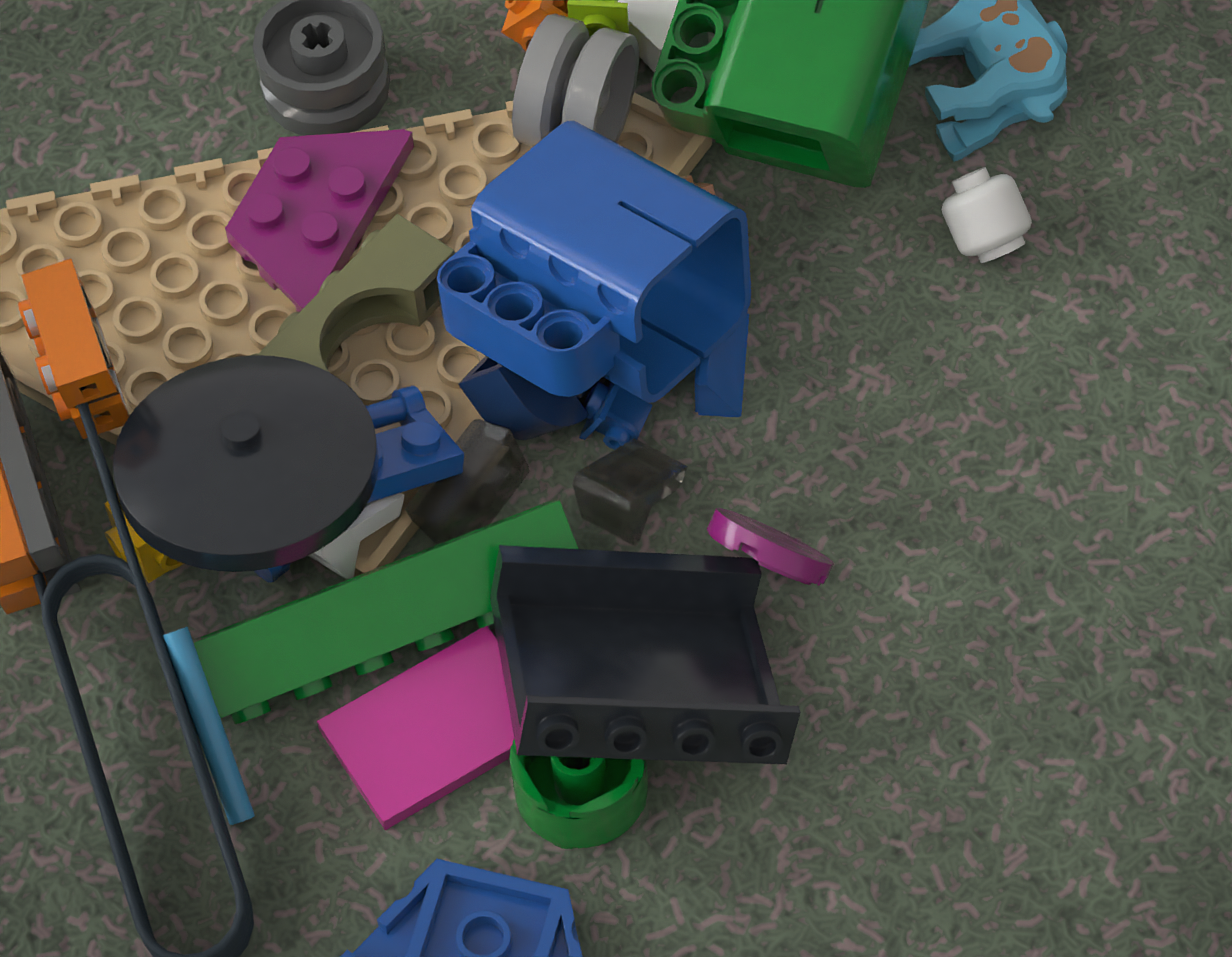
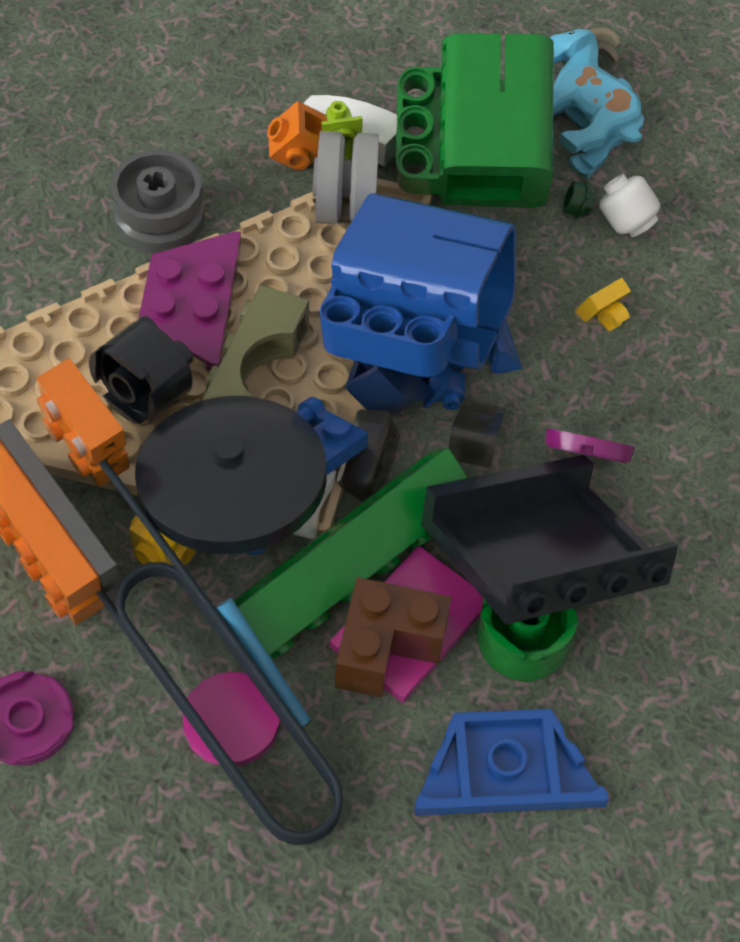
camera: 25 degrees left, 0 degrees up
(152, 788) = (234, 715): none -> dark pink tile
(197, 297) = (142, 371): none -> black brick
(380, 716) = (386, 623): none -> reddish brown brick
(891, 352) = (606, 305): none -> yellow tile
(922, 190) = (579, 199): none -> dark green plate

